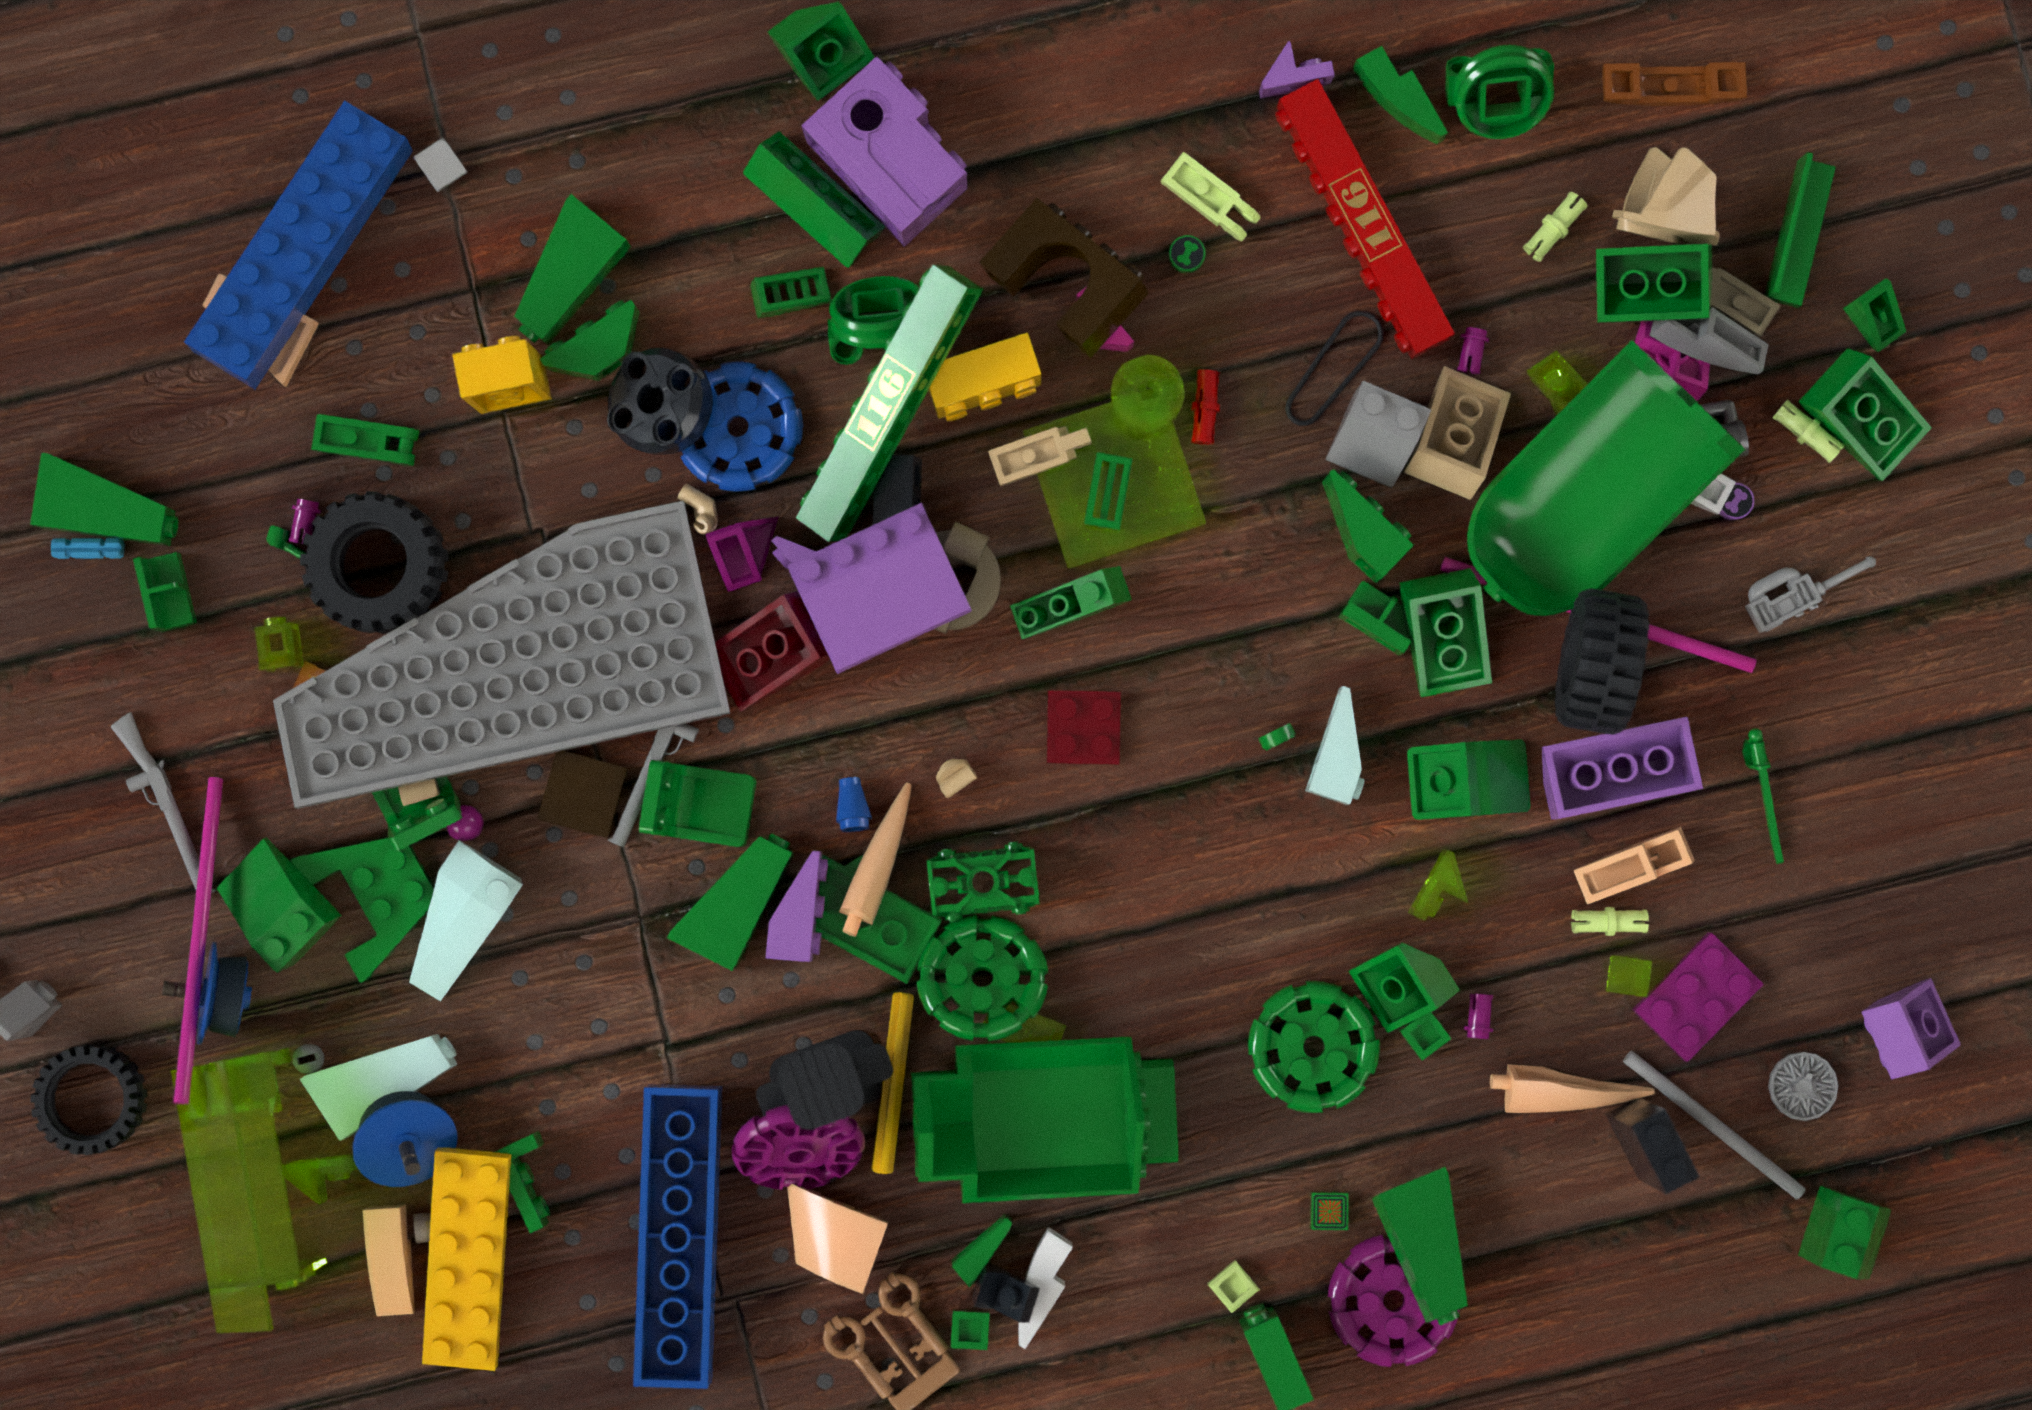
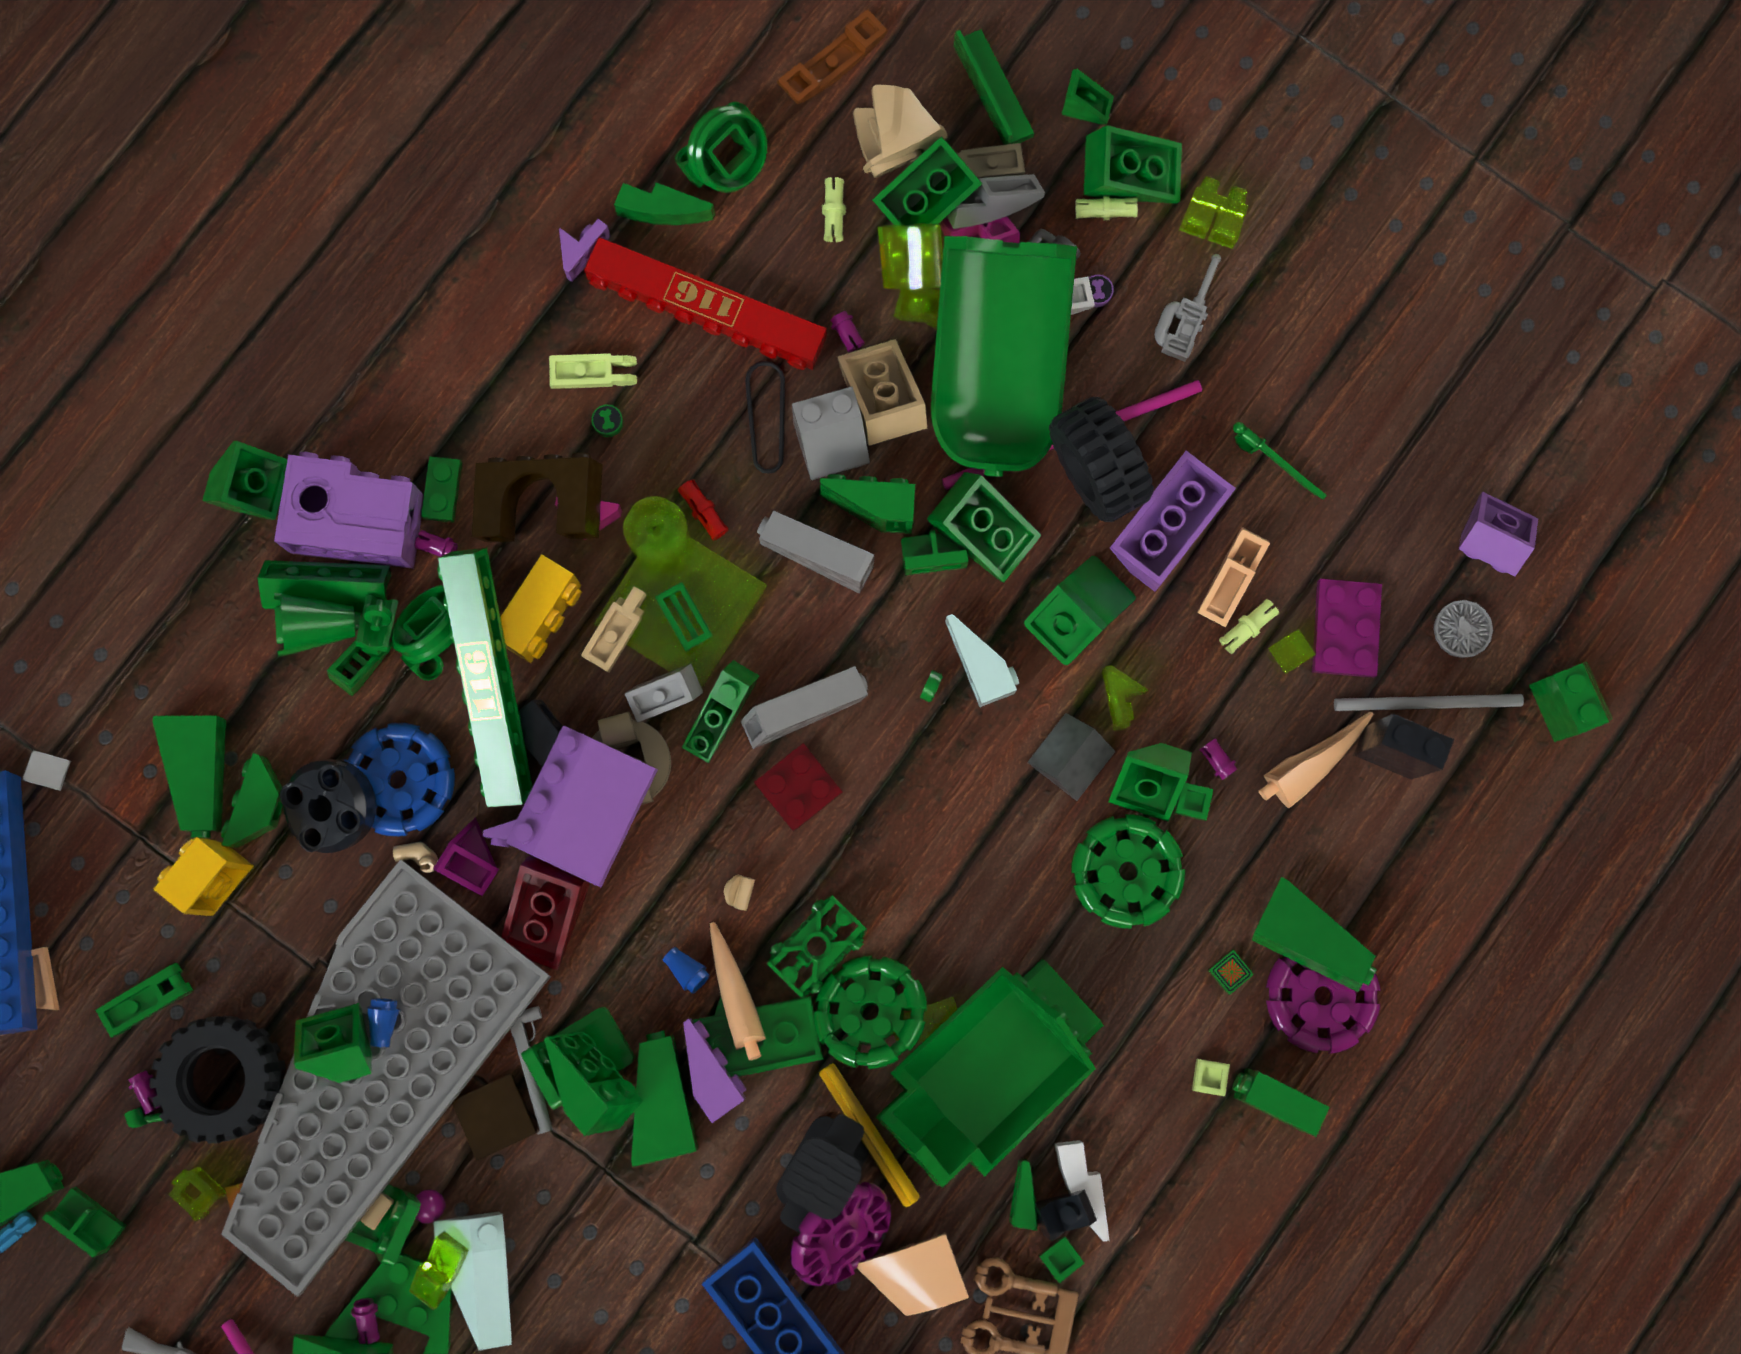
camera: 50 degrees left, 5 degrees down
(339, 868) = (366, 1322): none -> magenta pin
(430, 887) = (439, 1271): none -> clear neon green slope
(497, 617) = (334, 1044): none -> green slope
(554, 631) = (382, 1020): none -> blue cone
(688, 836) = (589, 1085): none -> green slope
(775, 224) = (312, 623): none -> green cone
(830, 273) = (376, 625): none -> green hips
(941, 243) = (434, 544): none -> magenta pin
(987, 195) = (441, 489): none -> green plate
(1034, 545) = (664, 693): none -> light grey panel
(1148, 660) = (803, 706): none -> light grey slope
(1276, 529) = (817, 550): none -> light grey slope
(1350, 903) = (1072, 755): none -> flat silver slope
(1588, 330) = (911, 256): none -> clear neon green slope
(1915, 533) = (1229, 211): none -> clear neon green hips

